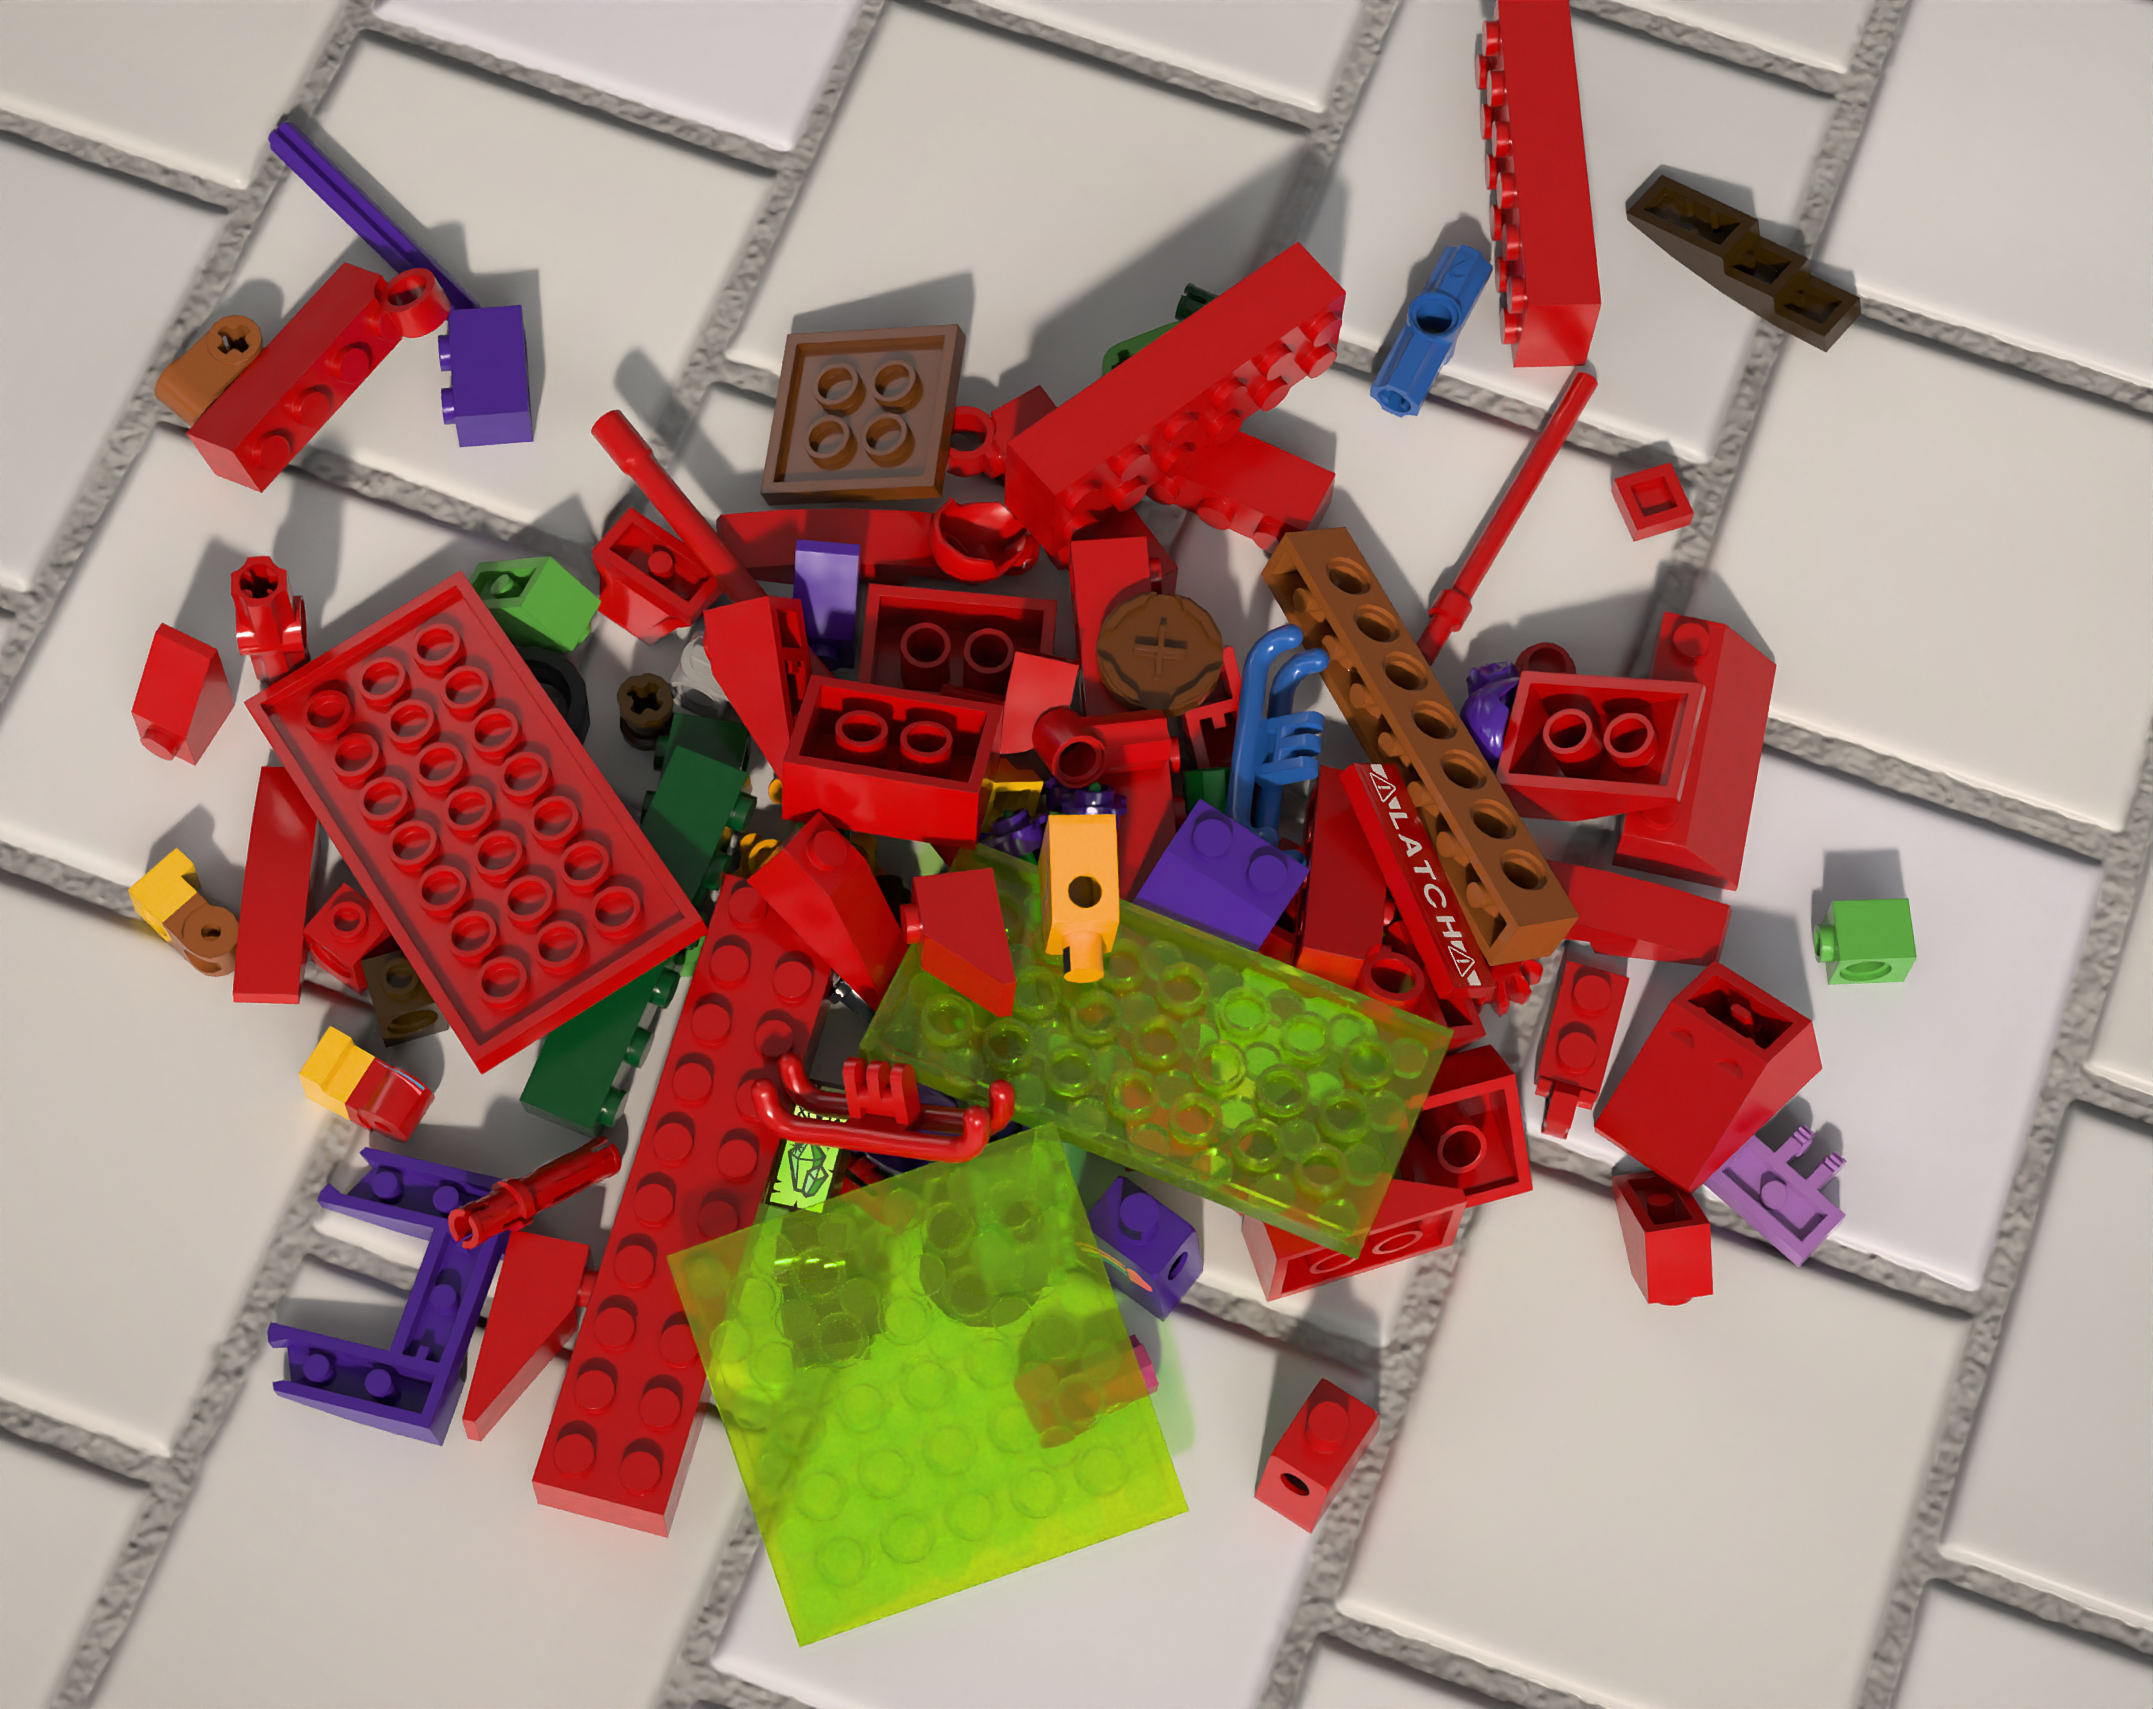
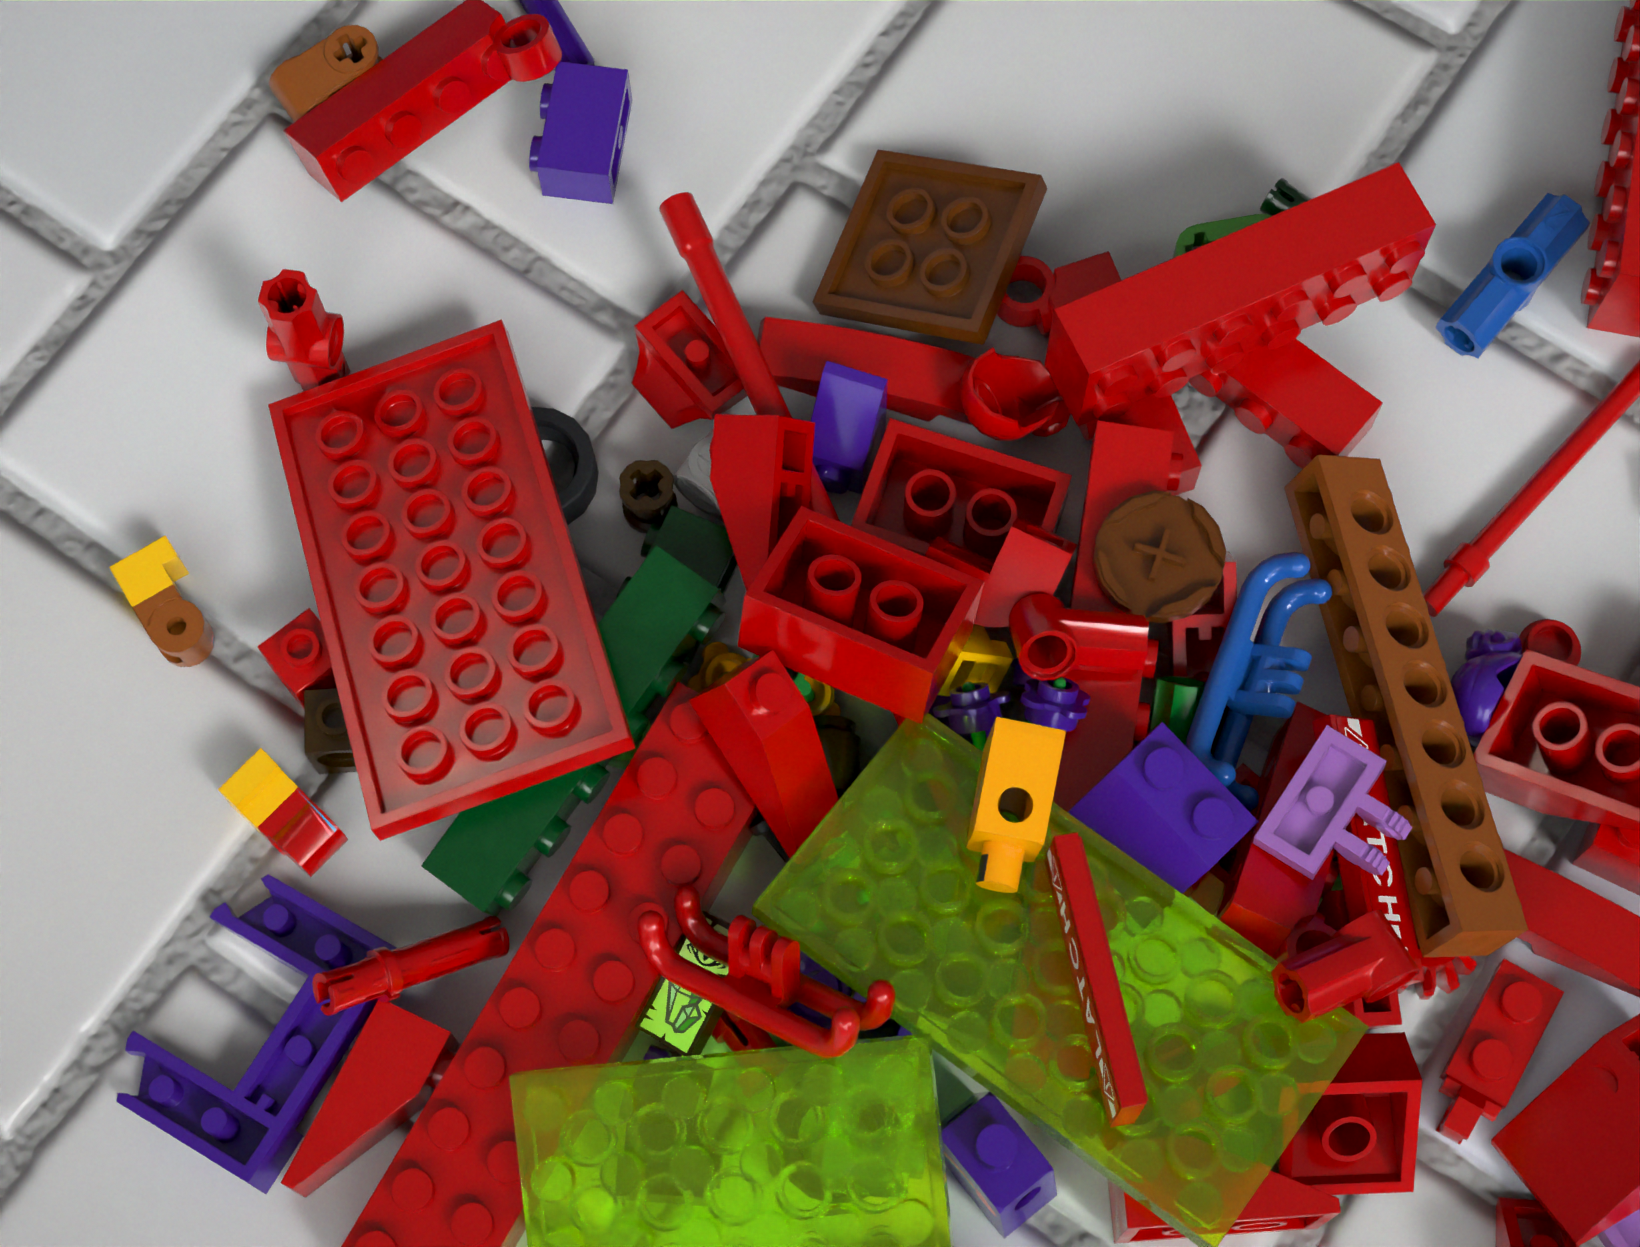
camera: 20 degrees right, 5 degrees up
(181, 696) = (209, 387): red slope -> none
(276, 893) = (247, 605): red slope -> none
(536, 602) = (567, 366): bright green slope -> none
(962, 936) = (884, 814): red slope -> none
(1194, 1037) = (1095, 980): none -> red tile
(1364, 841) = (1322, 802): none -> medium lavender hinge
(1429, 973) = (1355, 963): none -> red piece

